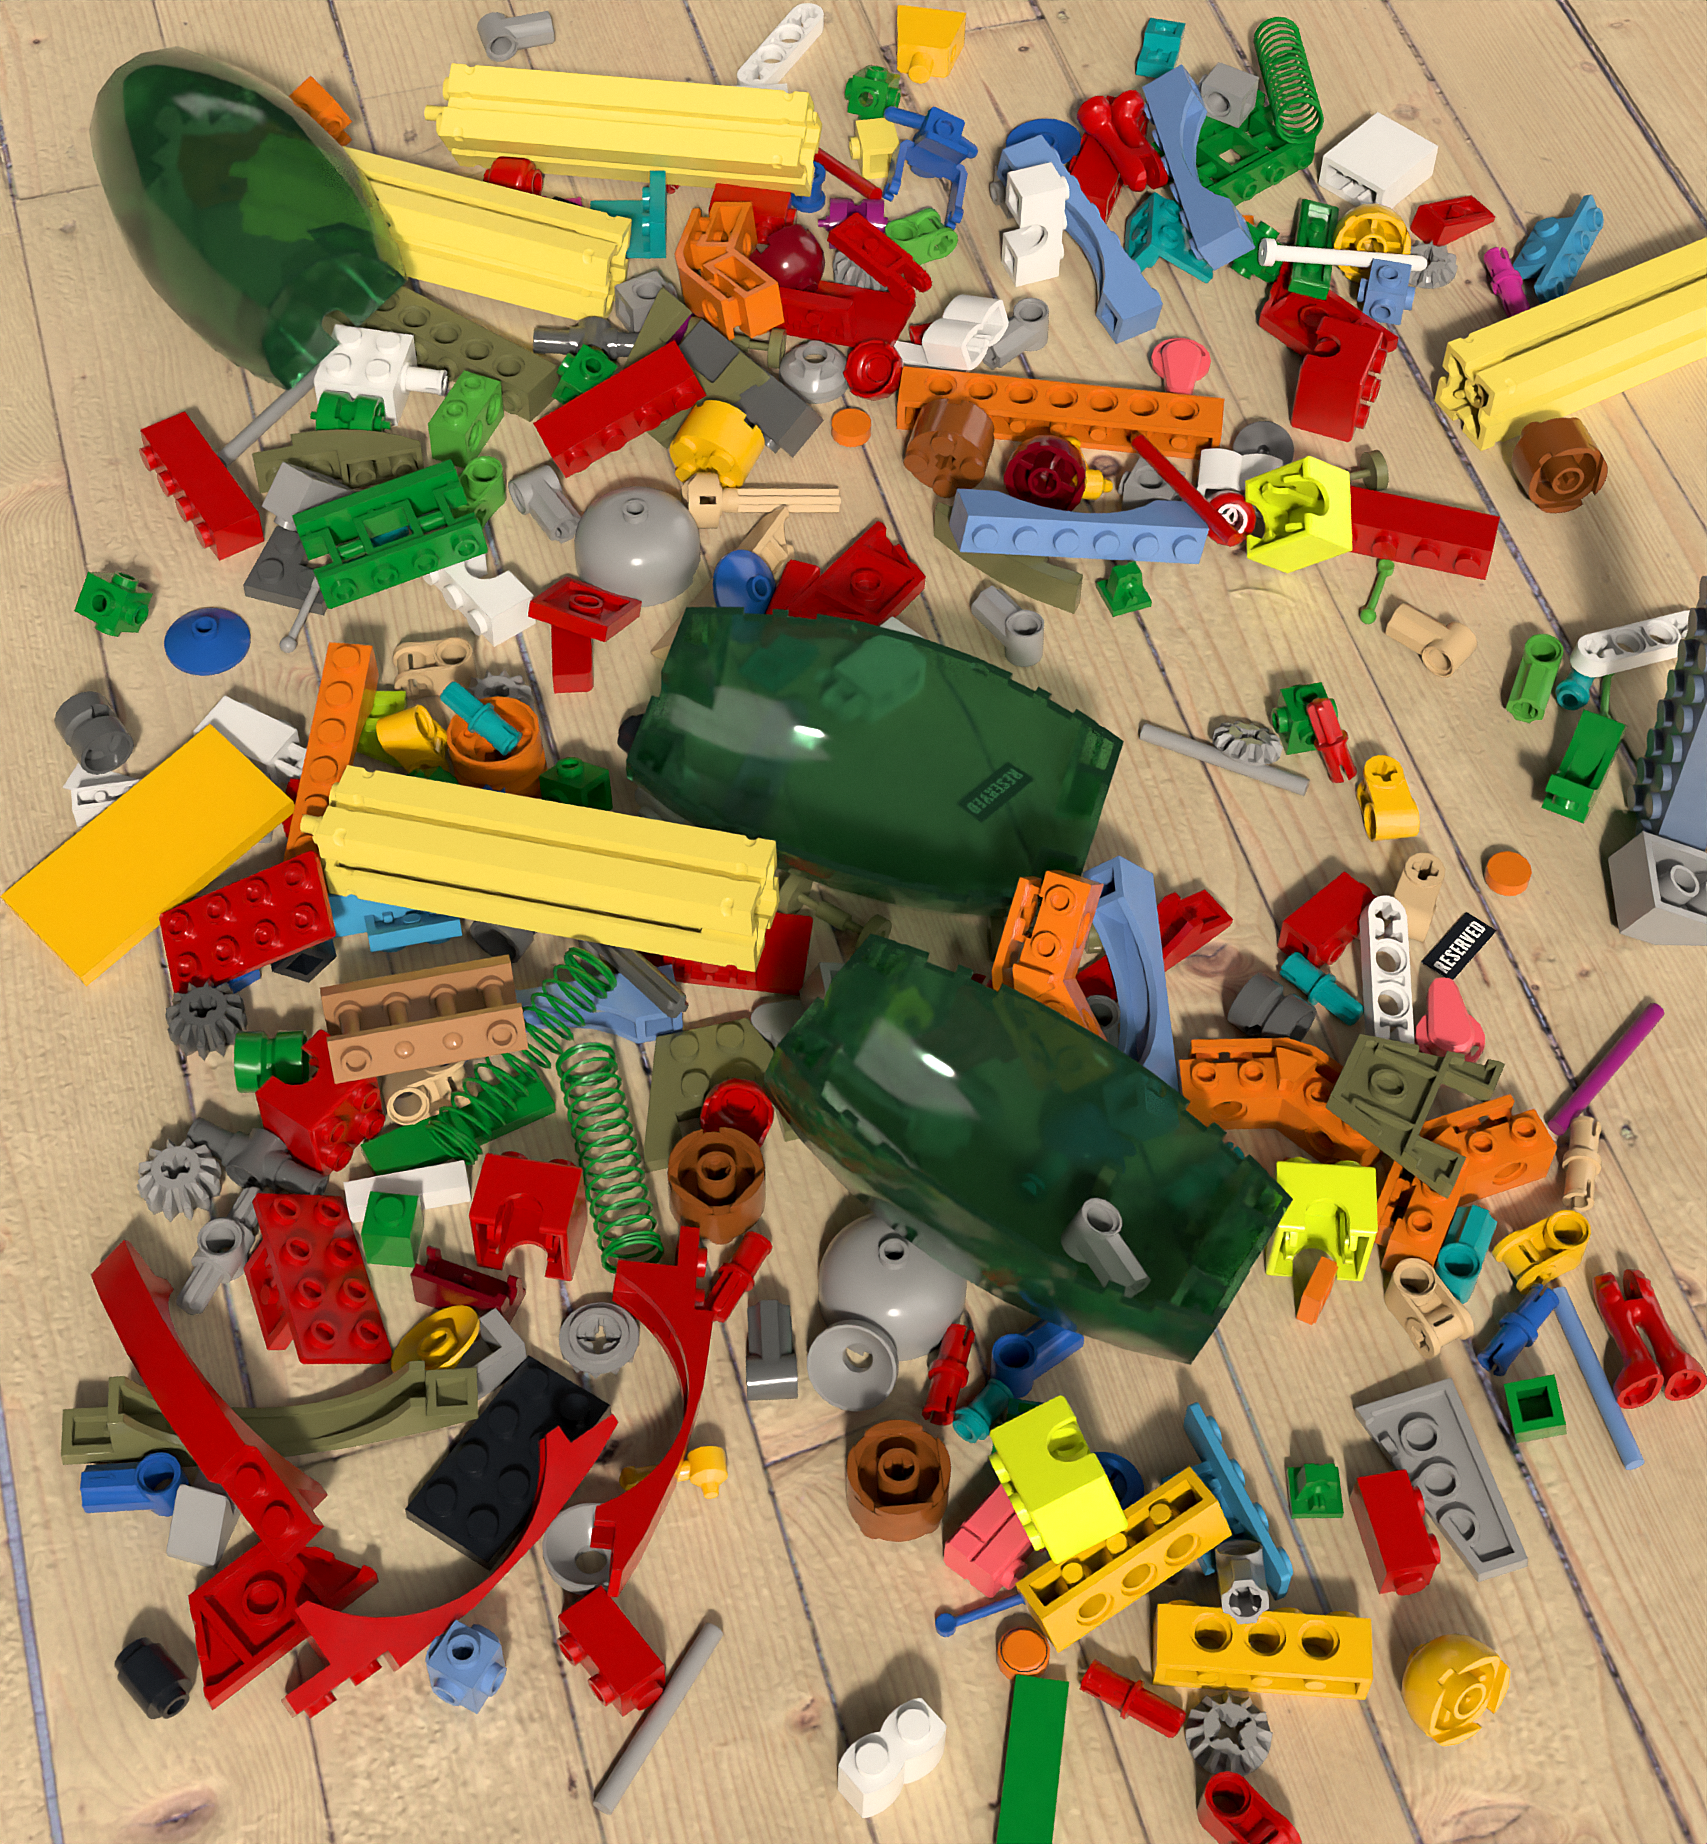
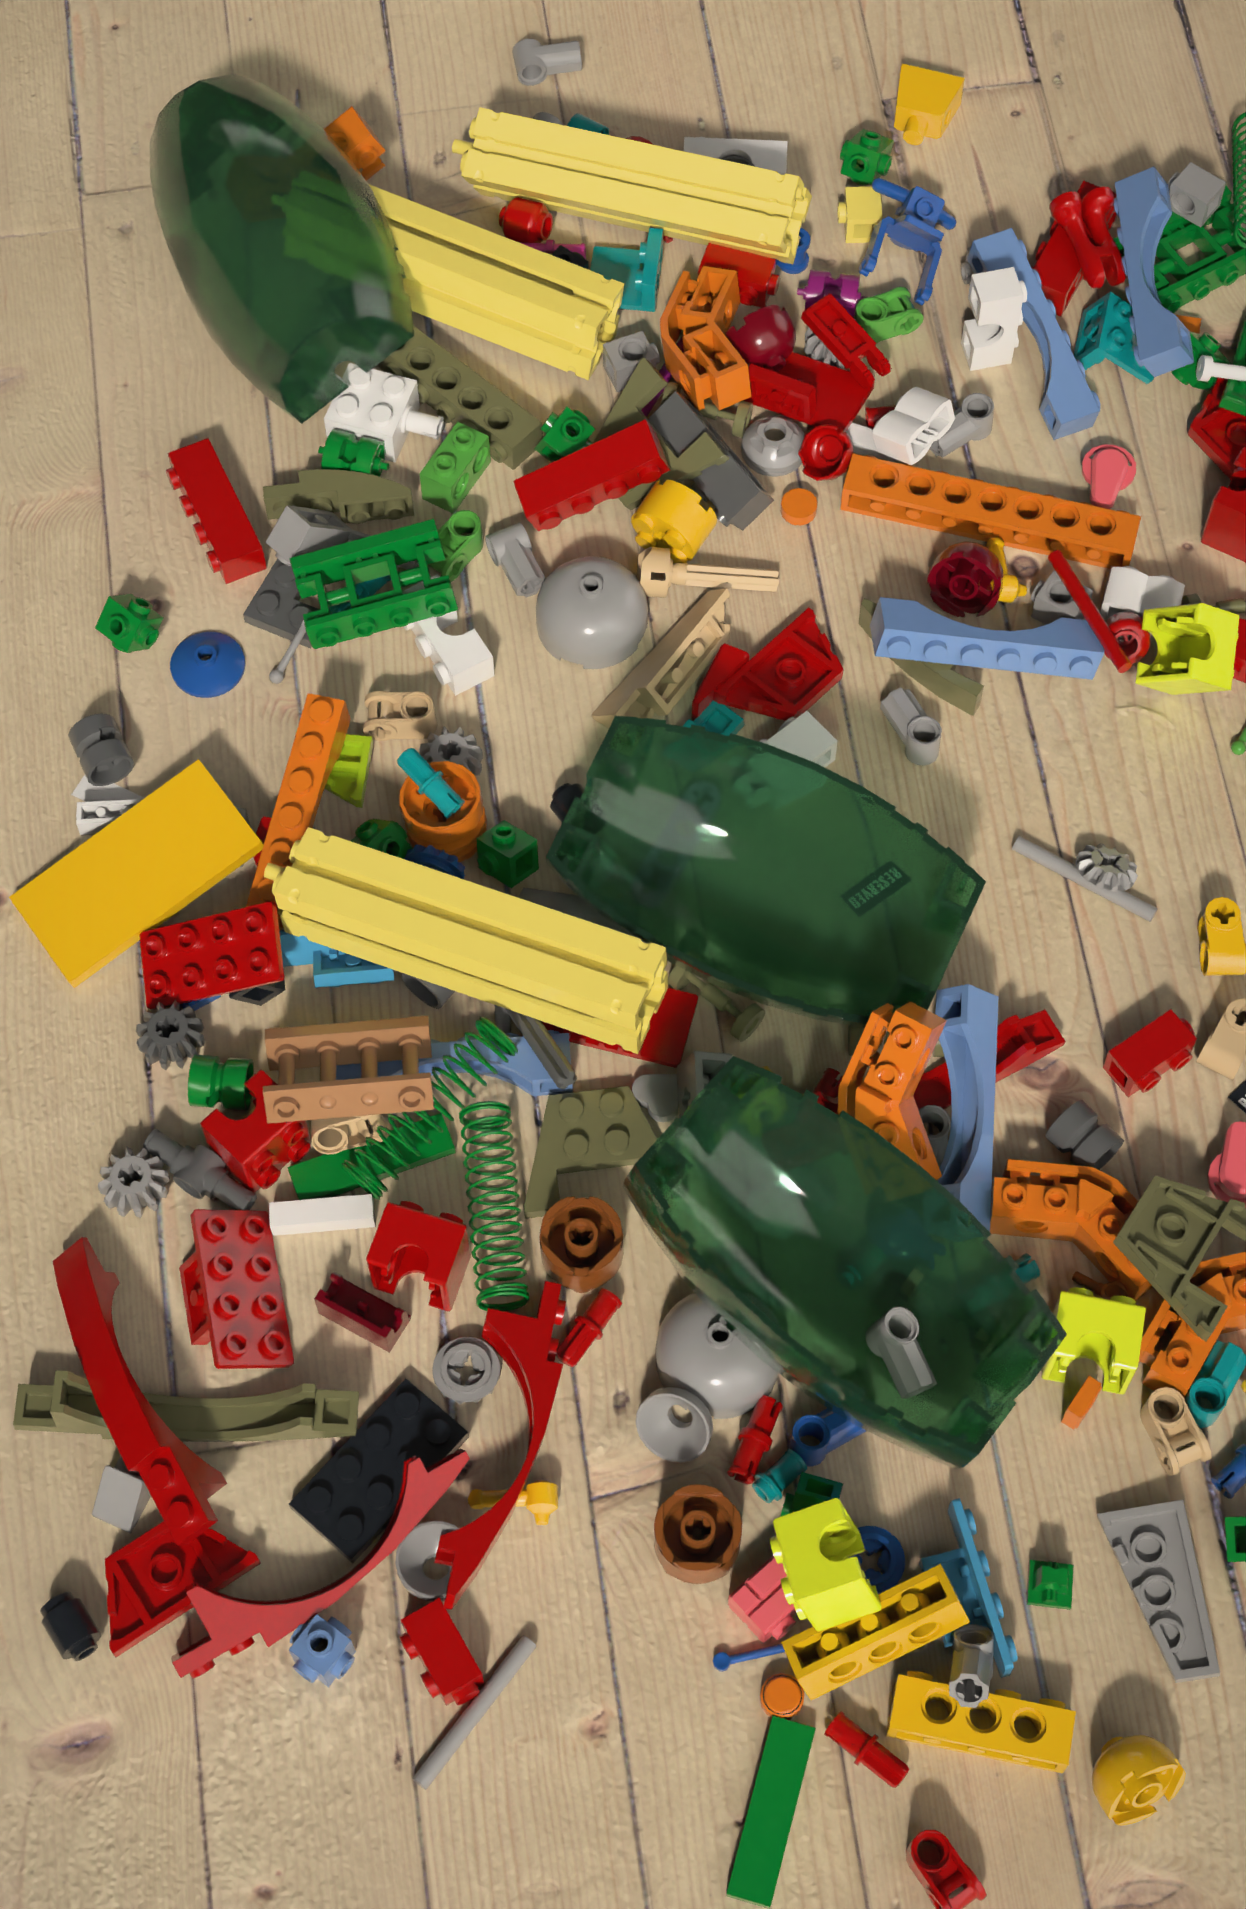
camera: 10 degrees right, 10 degrees up
(132, 1485) = (68, 1455): blue piece -> none
(218, 1268) = (154, 1268): light grey axle -> none
(262, 739) = (239, 773): white brick -> none
(266, 419) = (277, 449): light grey bar -> none
(392, 1229) = (305, 1251): green brick -> none
(413, 739) = (373, 791): yellow piece -> none
(438, 1339) = (330, 1358): yellow dish -> none
(494, 1355) = (374, 1375): light grey panel -> none
(571, 661) = (520, 713): red piece -> none
(584, 609) = (537, 672): red tile -> none
(591, 331) = (576, 392): dark grey pin -> none
(738, 1106) = (603, 1177): red hair -> none
(743, 581) = (678, 669): blue dish -> none
(770, 1362) = (607, 1410): dark grey piece -> none
(787, 53) = (792, 100): white beam -> none
(847, 175) = (830, 244): red bar -> none
(899, 1754) = (670, 1771): white brick -> none
(950, 446) = (883, 541): dark orange brick -> none
(1057, 133) = (1026, 217): blue dish -> none
(1124, 590) = (1020, 701): green brick -> none
(1160, 47) = (1143, 127): teal slope -> none
(1222, 1754) = (934, 1809): light grey gear -> none
(1267, 439) = (1172, 560): flat silver piece -> none
(1291, 719) = (1161, 848): green brick -> none
(1321, 988) = (1134, 1115): teal axle -> none
(1330, 739) = (1180, 876): red axle -> none
(1380, 982) = (1183, 1118): white beam -> none
(1394, 1532) = (1110, 1632): red brick -> none

